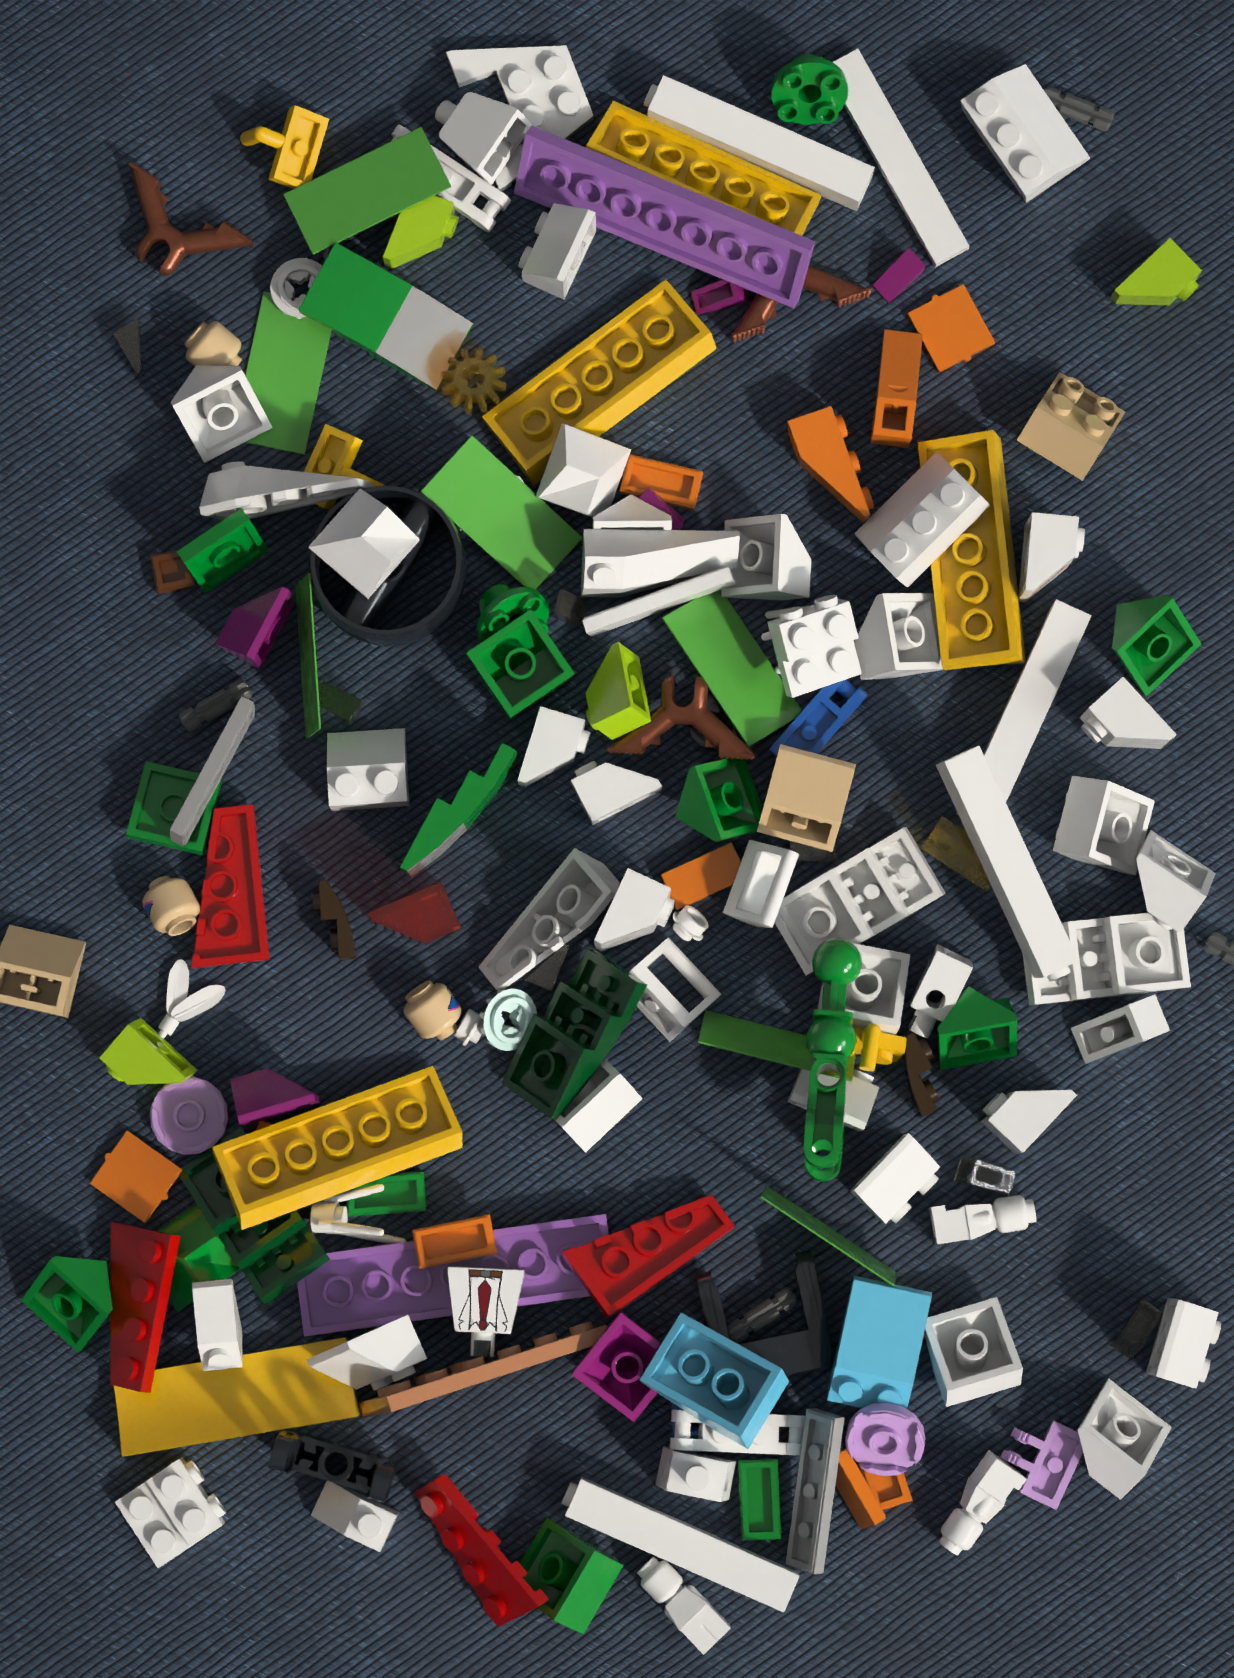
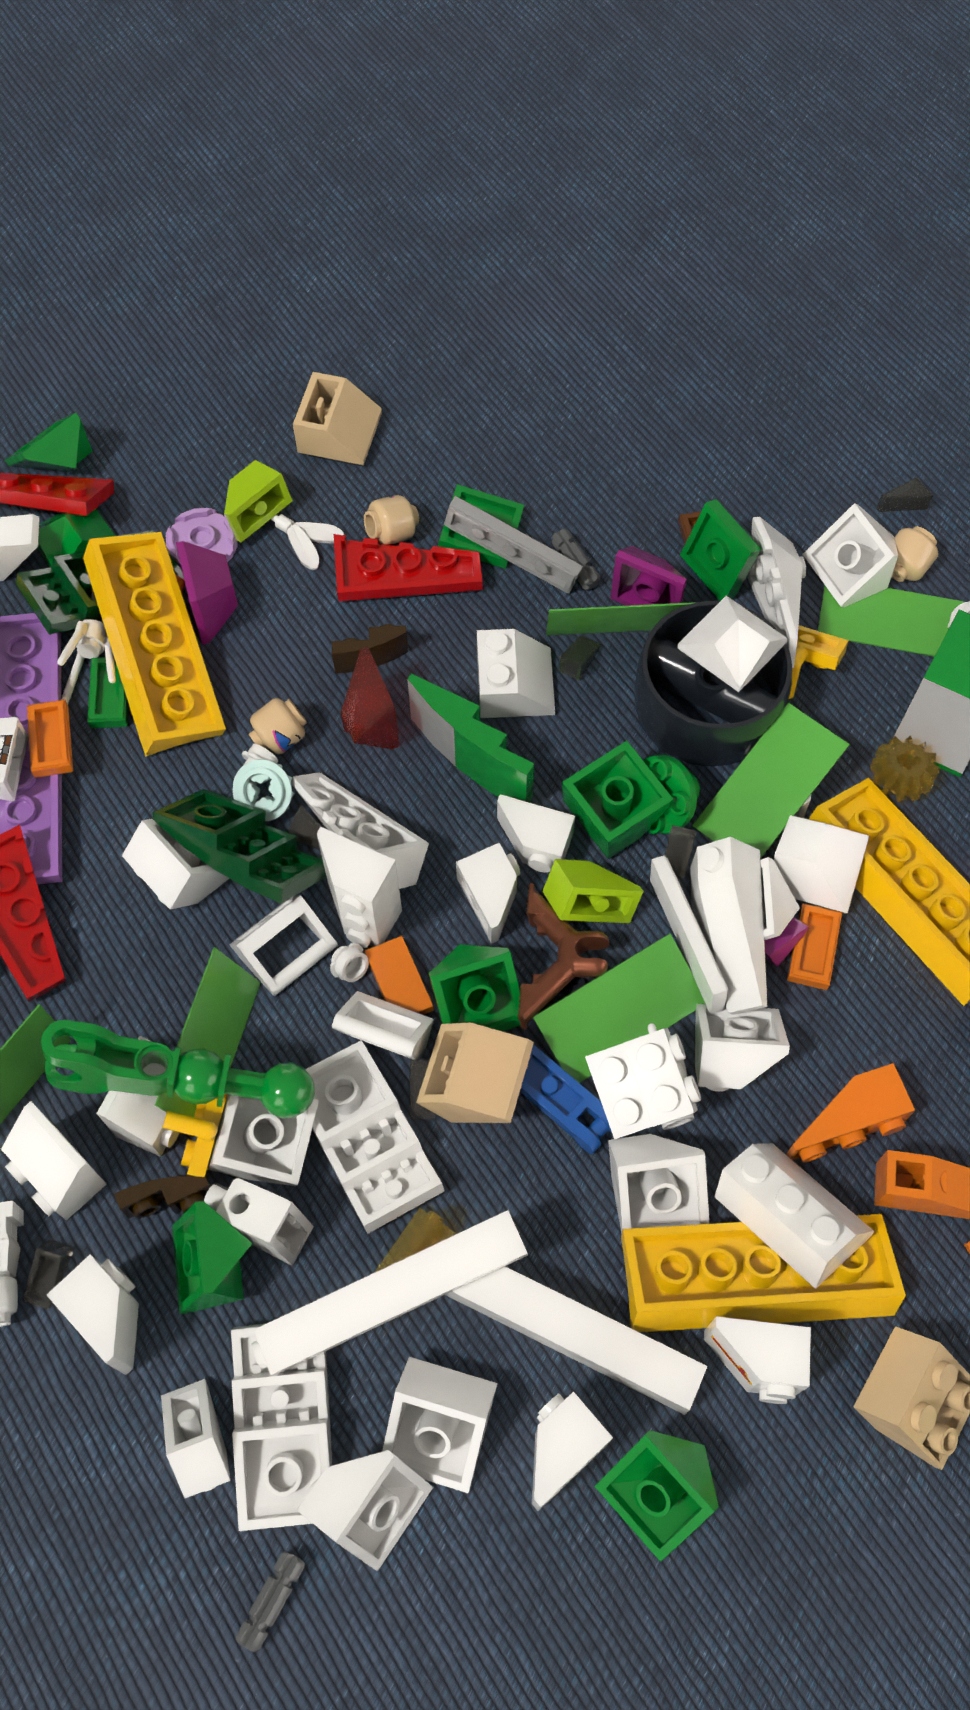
camera: 90 degrees right, 20 degrees down
(136, 1176) = (151, 500): orange piece -> none

